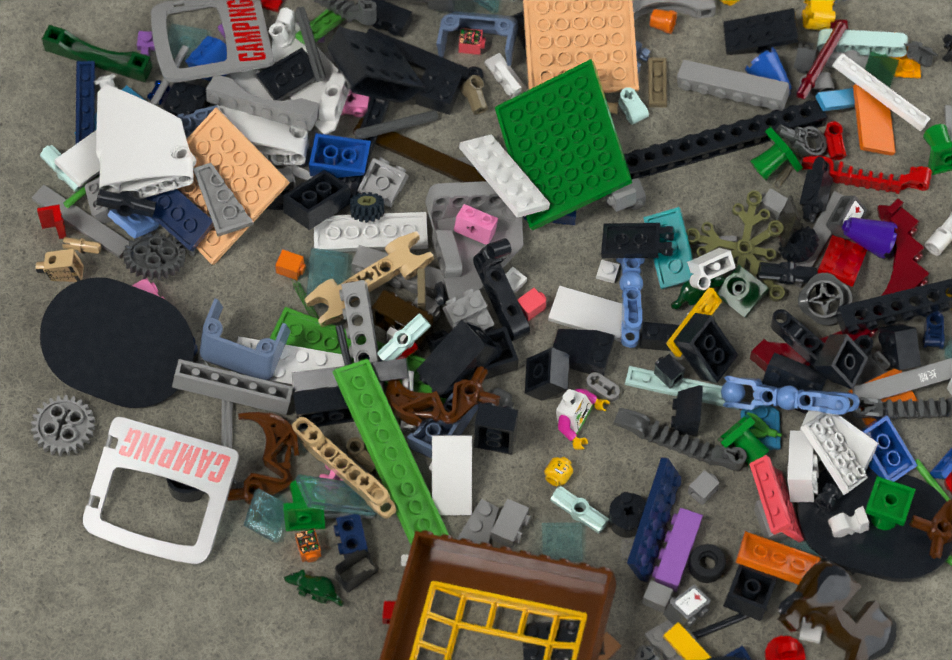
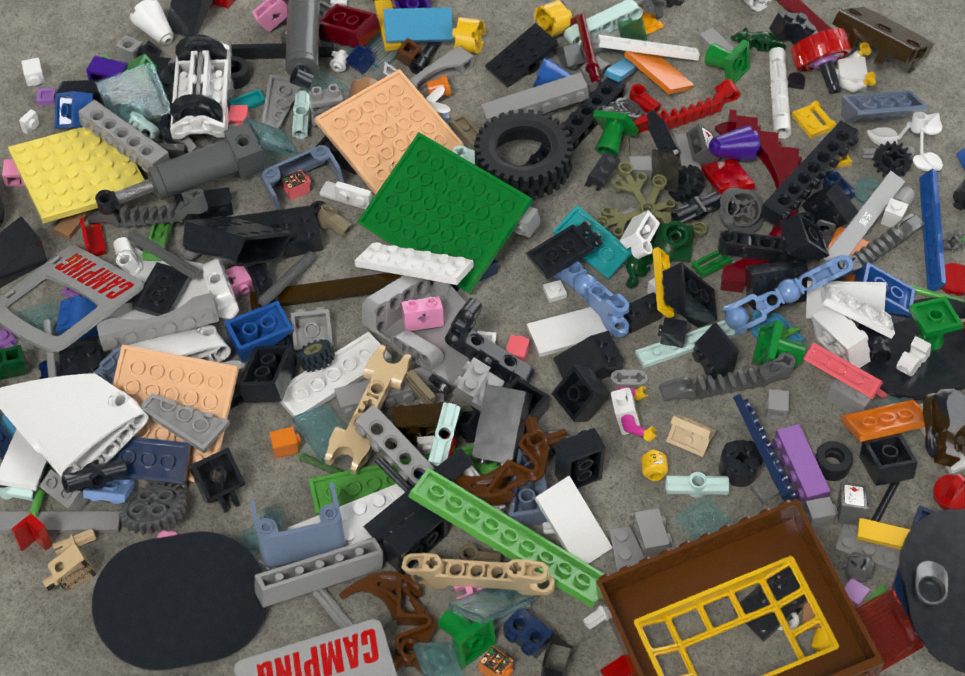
camera: 35 degrees left, 10 degrees down
(207, 269) = (228, 481): none -> black hinge
(232, 322) = (250, 536): none -> clear light blue tile
(611, 464) = (690, 435): none -> tan bracket
(645, 29) = (434, 96): none -> white piece
(670, 161) = (529, 179): none -> black tyre
(738, 186) = (602, 170): none -> black hinge
(755, 331) = (713, 266): none -> green tile

